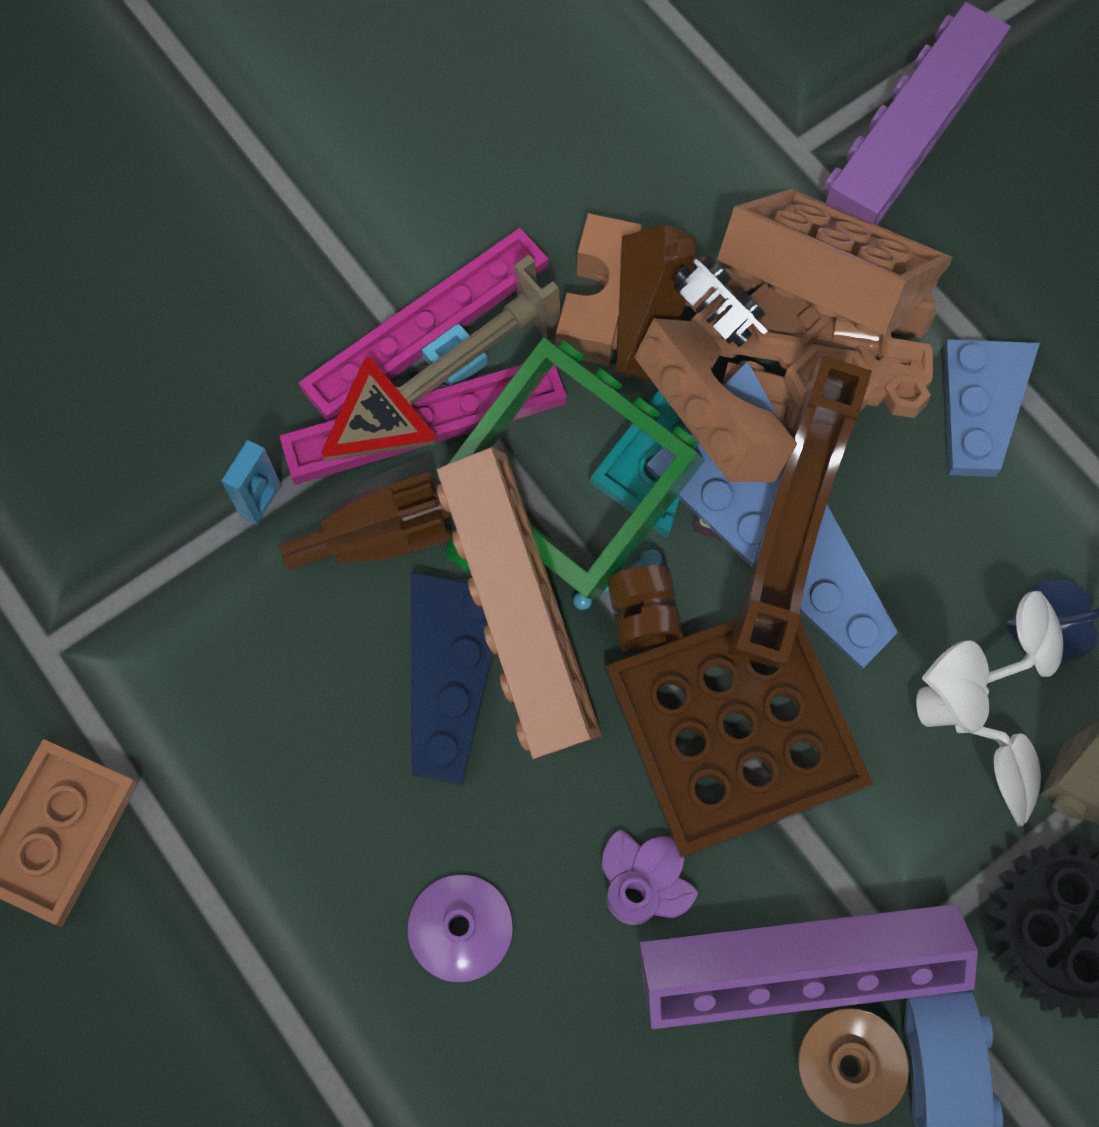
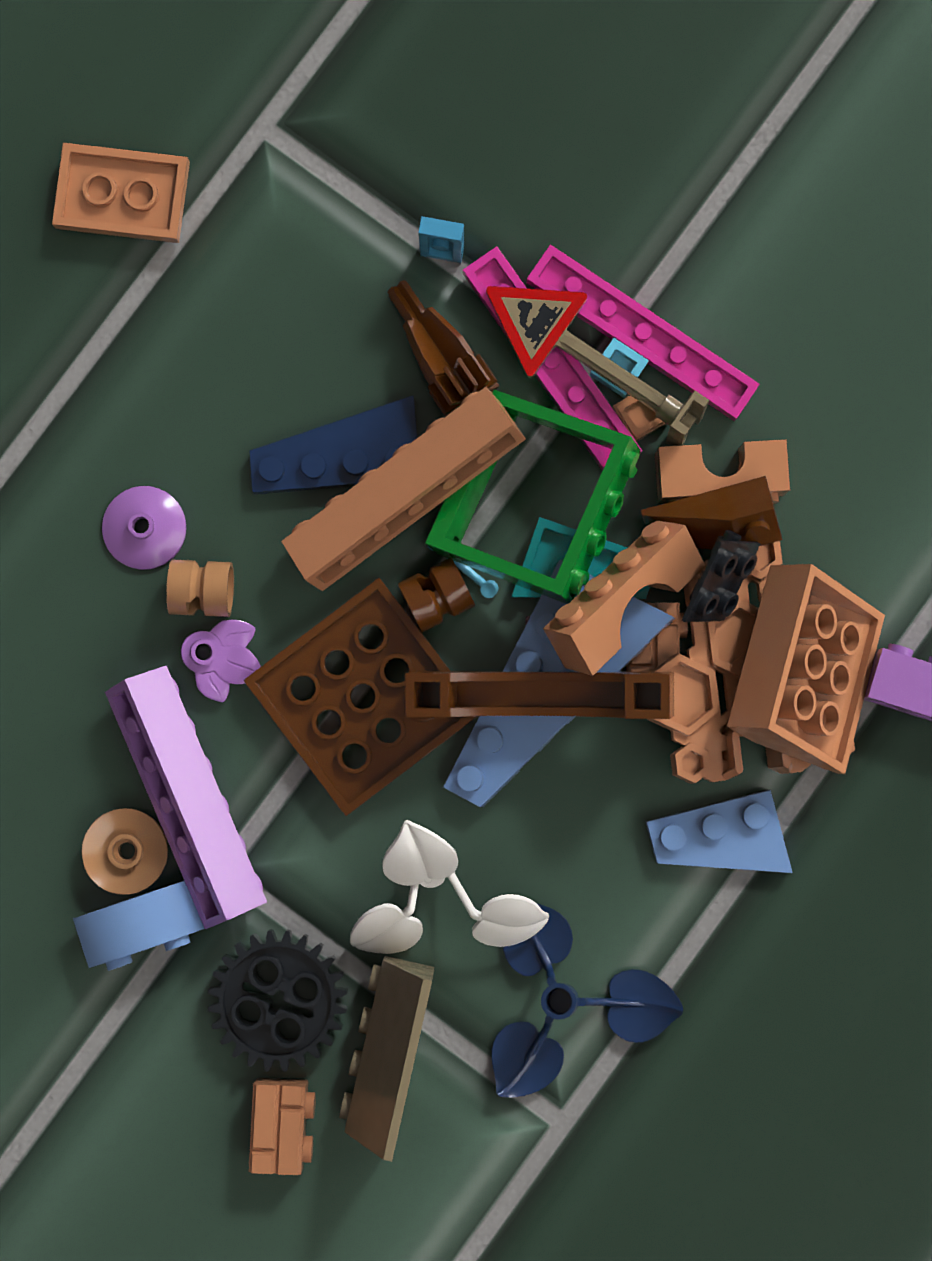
camera: 75 degrees right, 15 degrees up
(510, 350) = (637, 417): none -> nougat tile
(557, 873) = (200, 588): none -> medium nougat wheel

